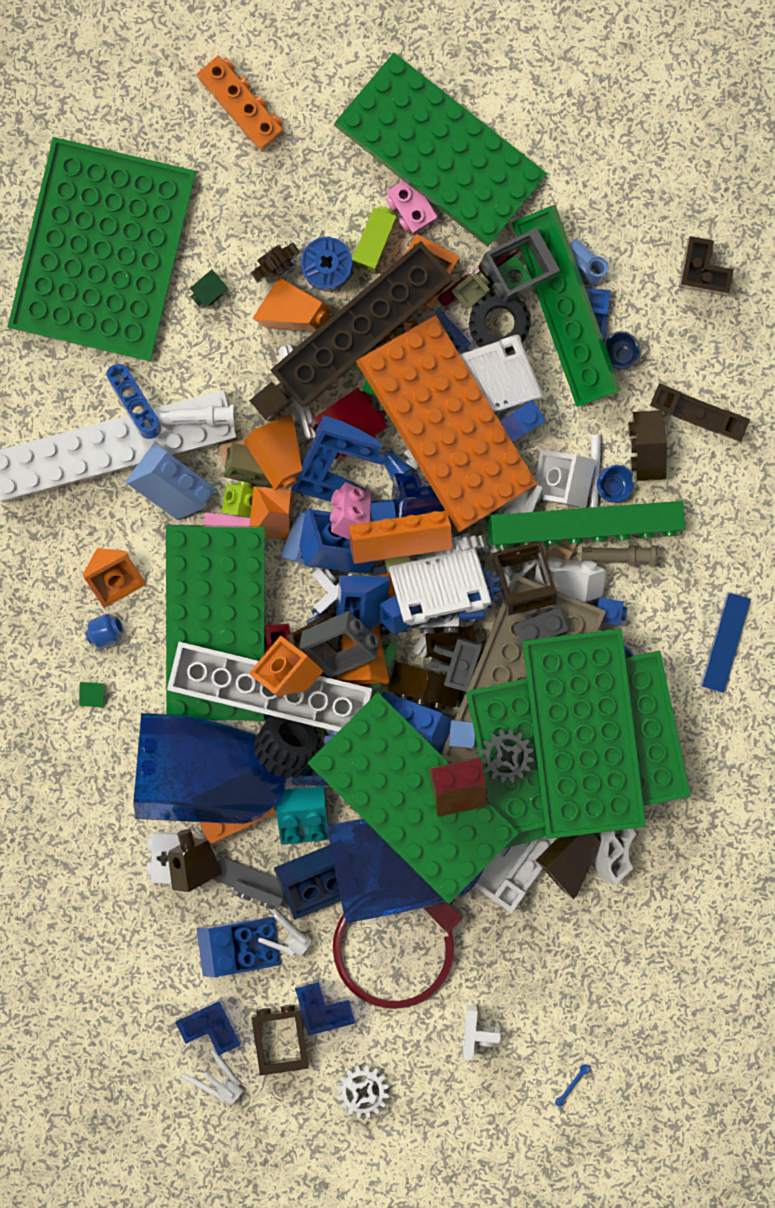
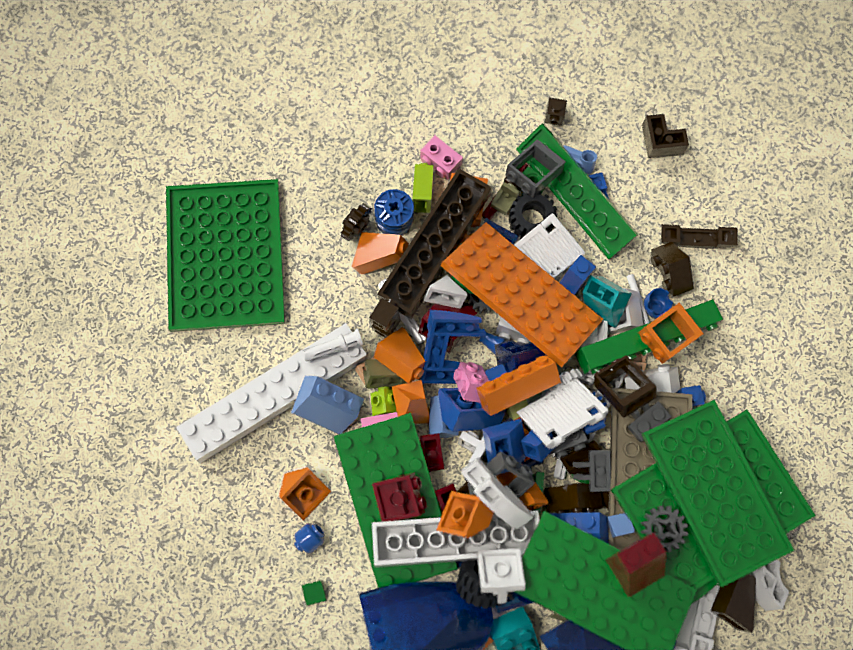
camera: 20 degrees left, 15 degrees down
(133, 401) = (279, 352): blue beam -> none
(208, 289) = (312, 257): dark green brick -> none
(220, 622) = (399, 497): none -> dark red plate
(240, 103) = (296, 125): orange brick -> none
(278, 577) = (432, 451): none -> dark red slope
(303, 743) = (500, 572): none -> white bracket
(325, 661) = (495, 495): none -> white slope
(354, 393) = (446, 293): none -> white slope
(440, 149) = (448, 114): green plate -> none
(548, 459) = (606, 298): none -> teal slope
(579, 189) = (555, 111): none -> dark brown brick
(623, 350) = (629, 207): dark blue hair -> none
(629, 523) = (682, 321): none -> orange window
(630, 555) = (688, 353): dark tan pin -> none
(725, 642) = (782, 395): blue slope -> none

